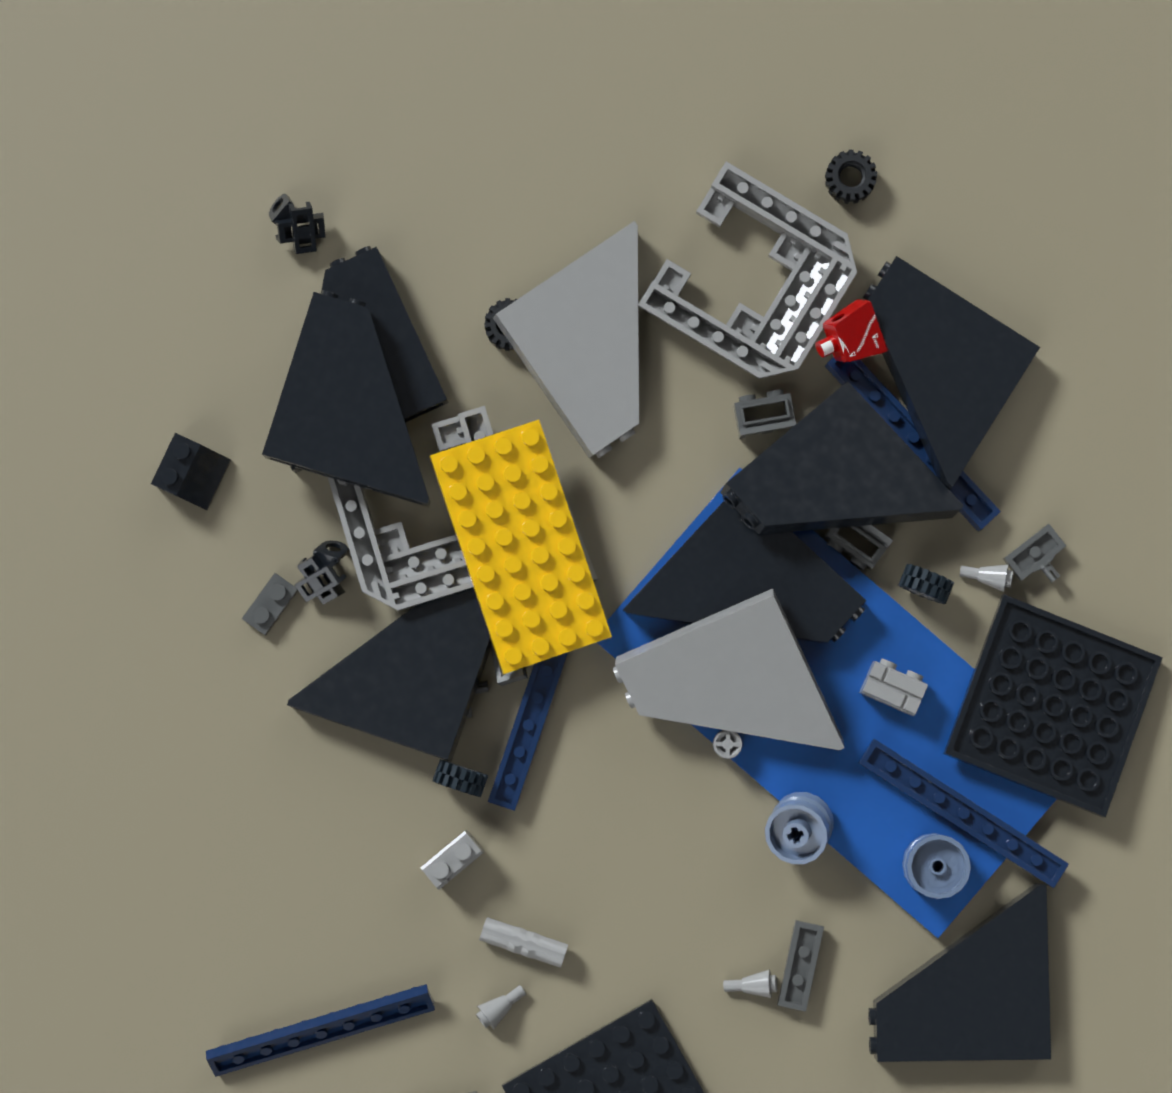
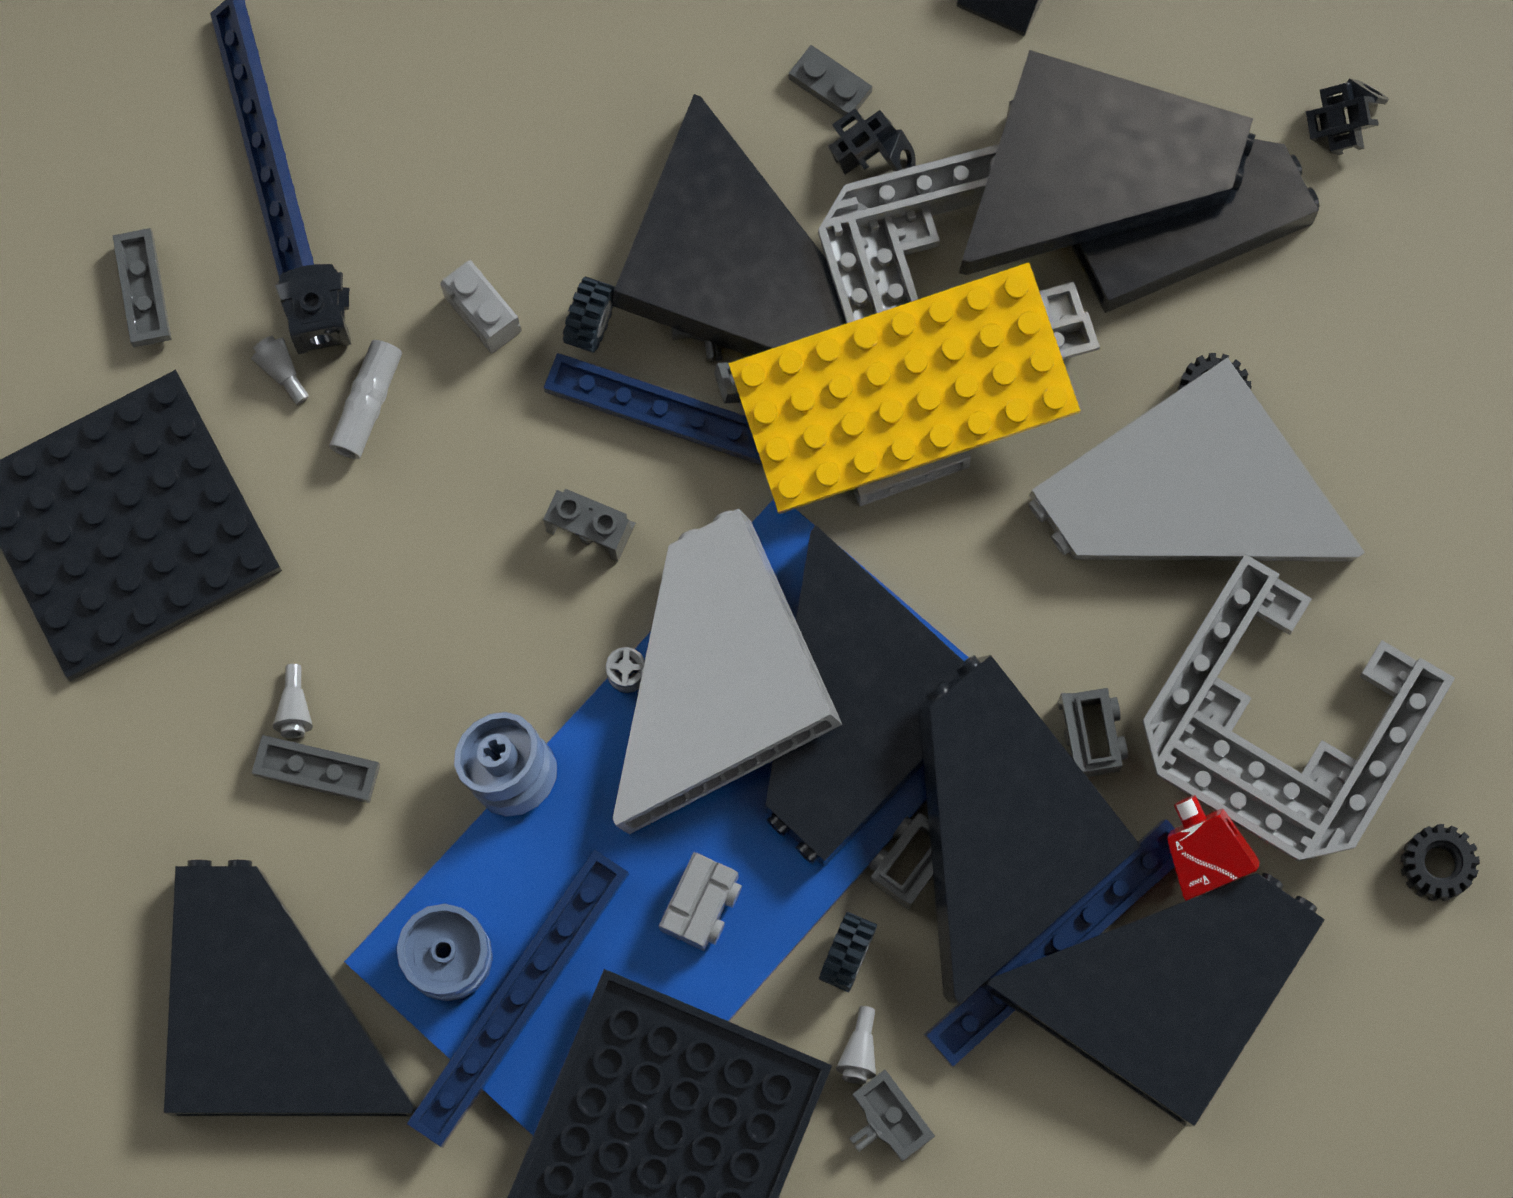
camera: 90 degrees right, 10 degrees down
(455, 982) = (315, 306): none -> black piece
(615, 774) = (589, 521): none -> dark grey window

